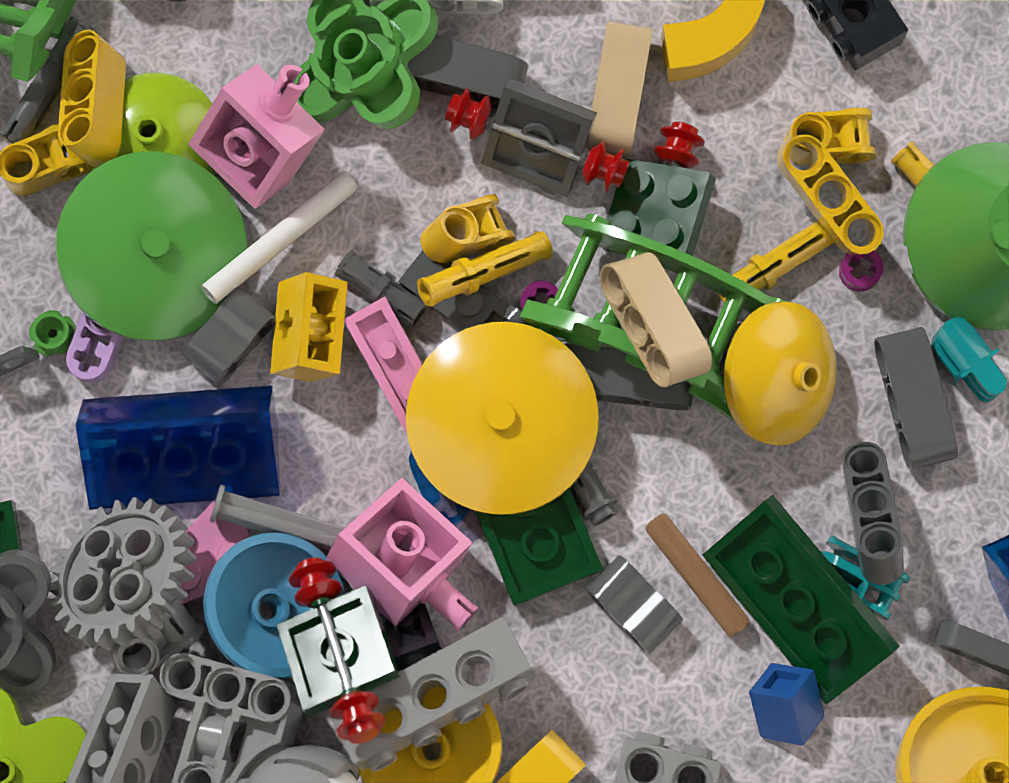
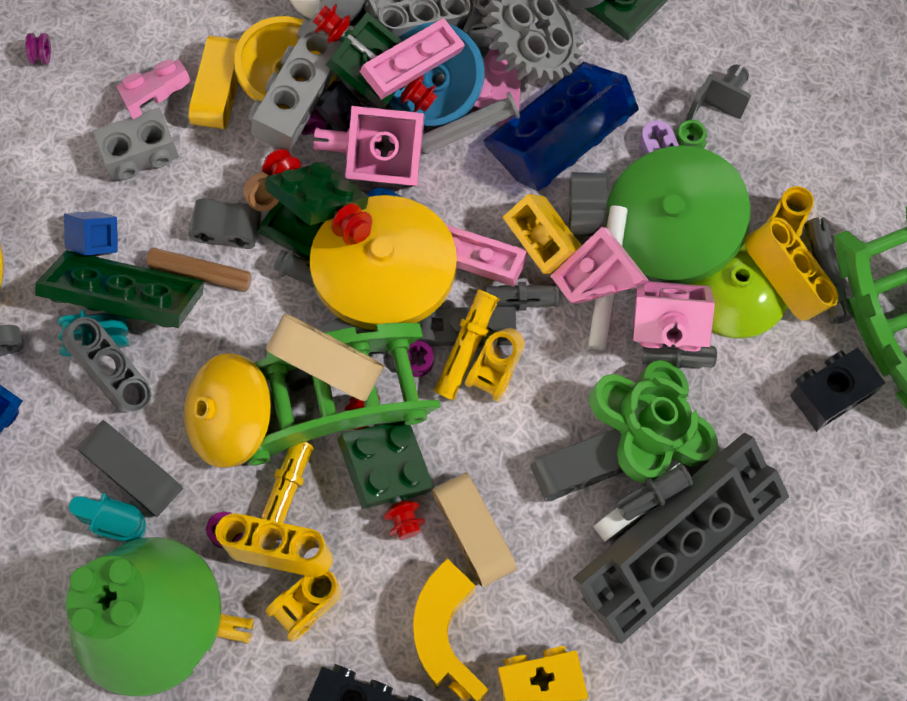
camera: 140 degrees right, 10 degrees down
(288, 237) = (598, 270): none -> bright pink wing
(296, 612) = (412, 58): none -> bright pink plate
(521, 536) = (318, 195): none -> dark green plate
(537, 138) = (499, 448): dark grey plate -> none
(573, 595) = (256, 195): none -> medium nougat tile

